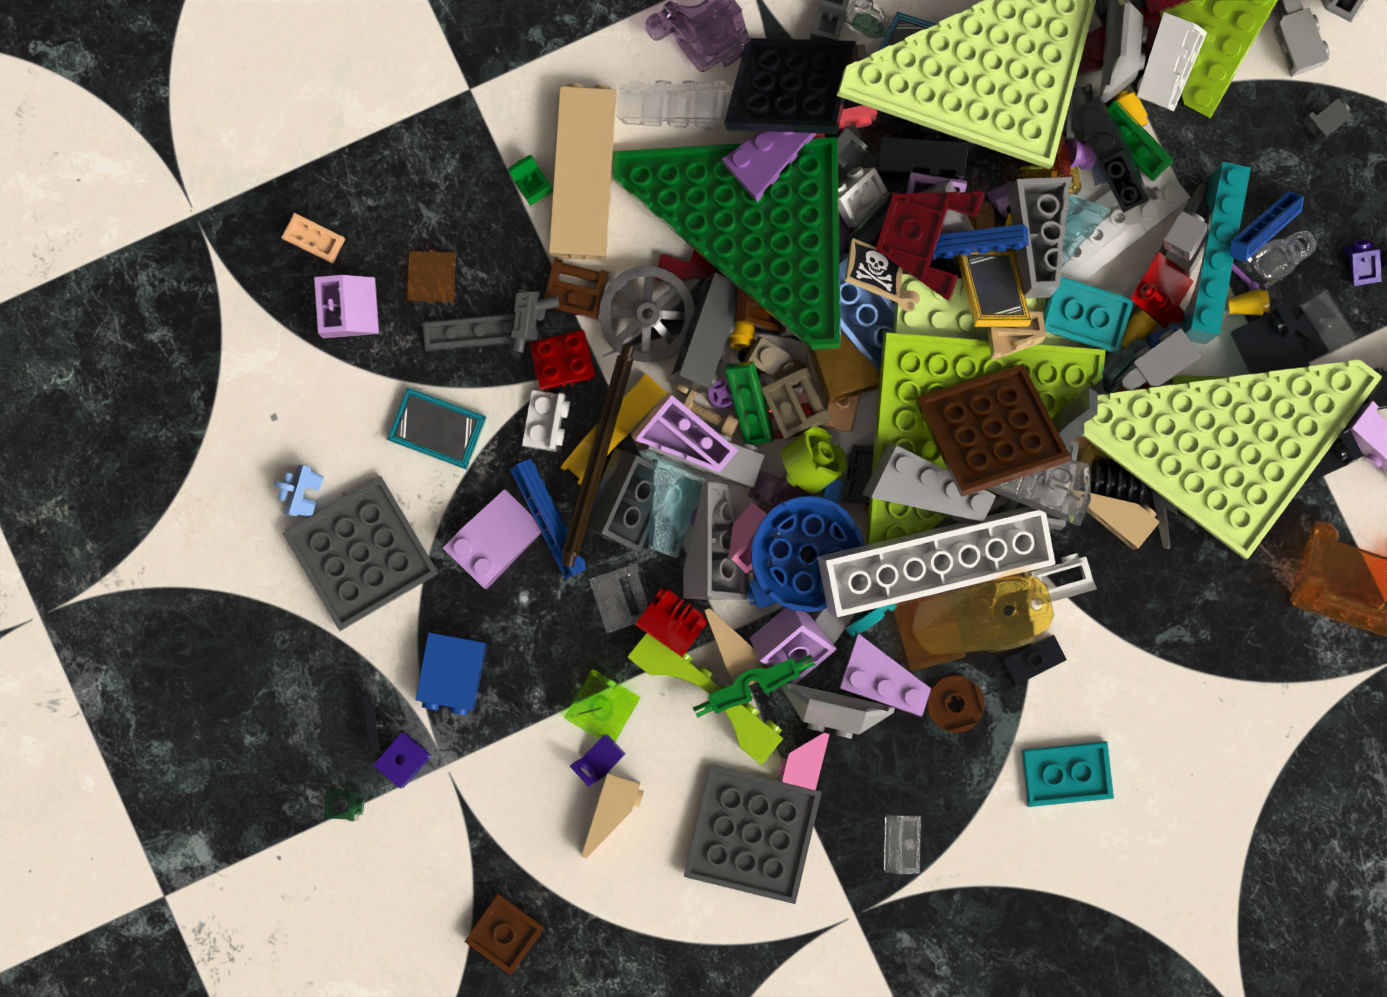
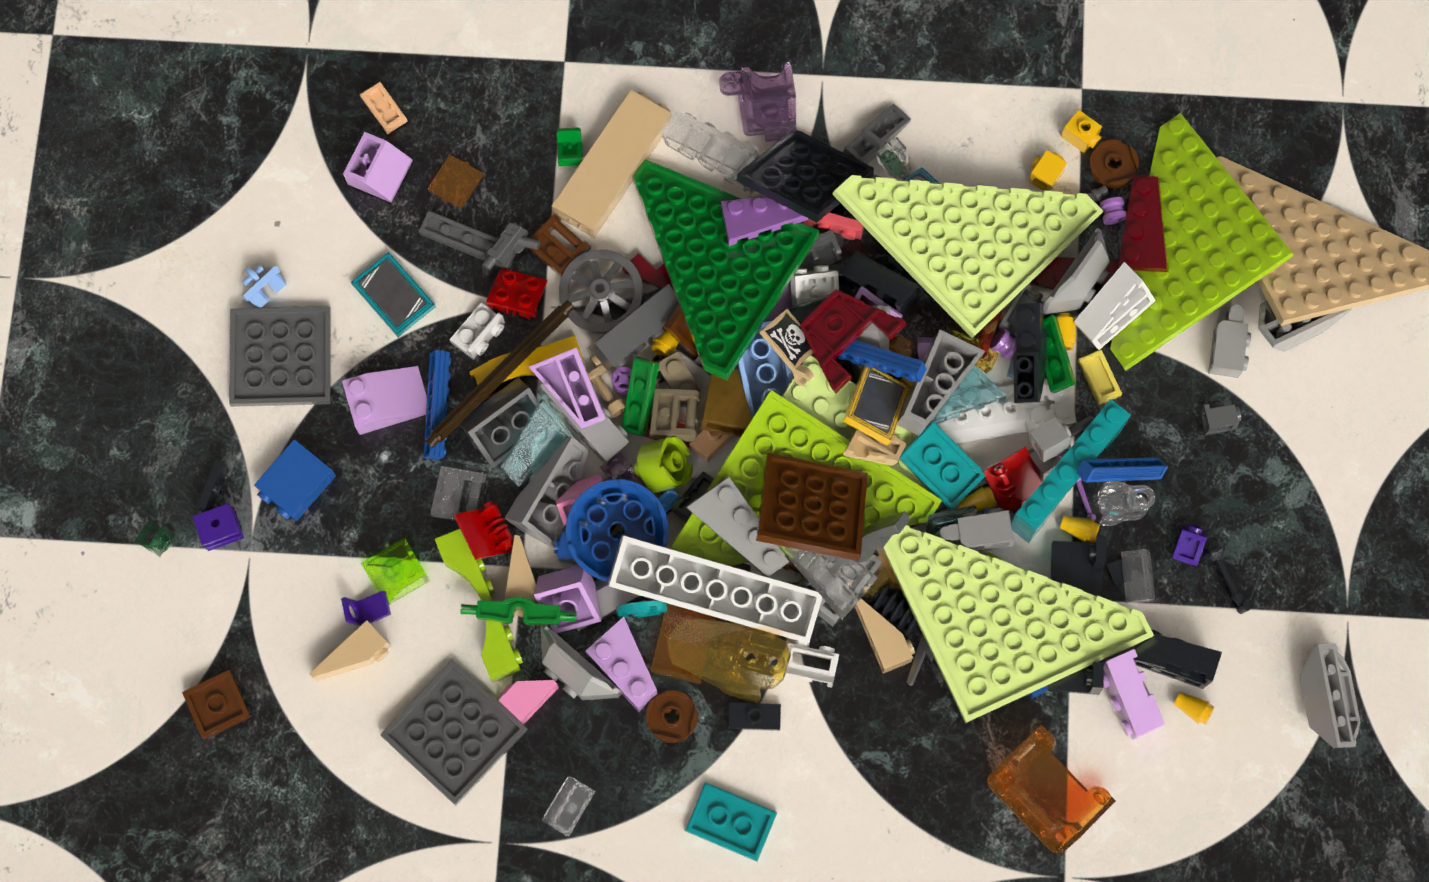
camera: 30 degrees right, 10 degrees down
(1188, 138) = (1099, 377): none -> light yellow tile

